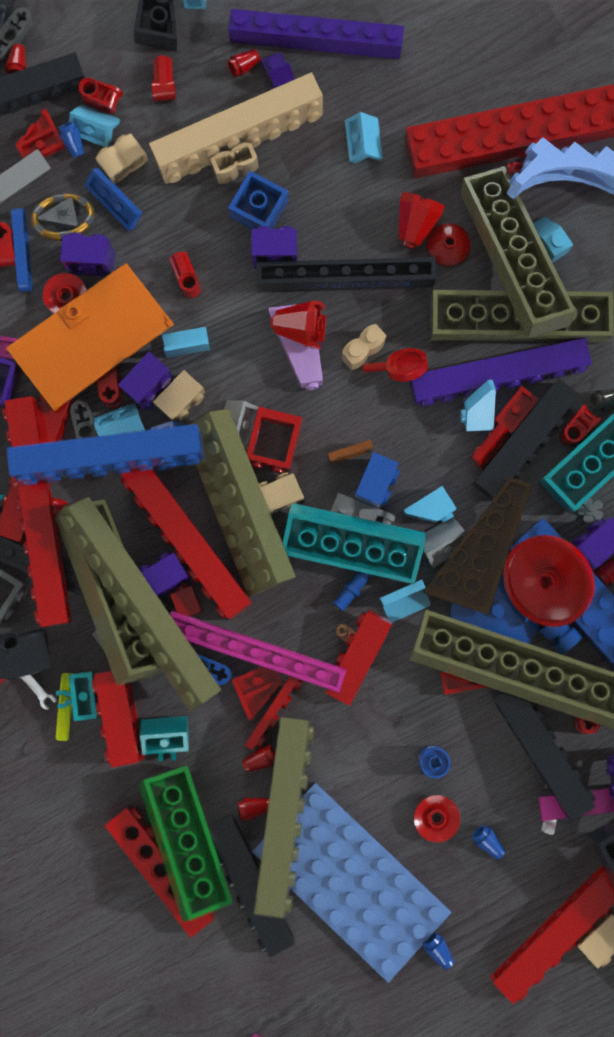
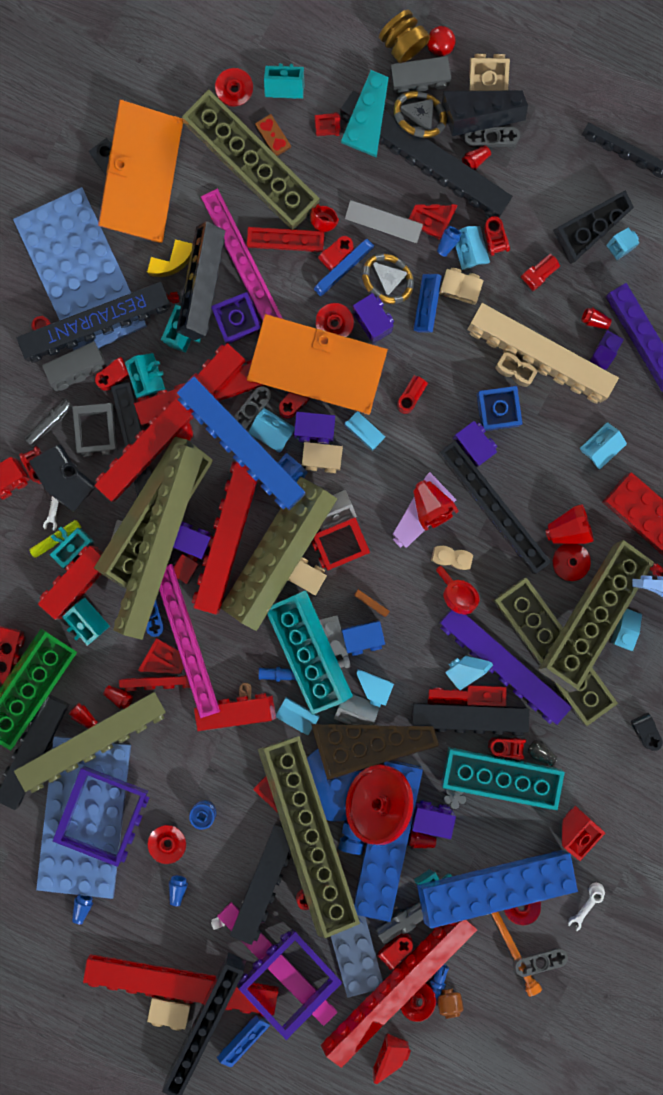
camera: 55 degrees right, 5 degrees up
(355, 919) = (60, 835): none -> dark purple window

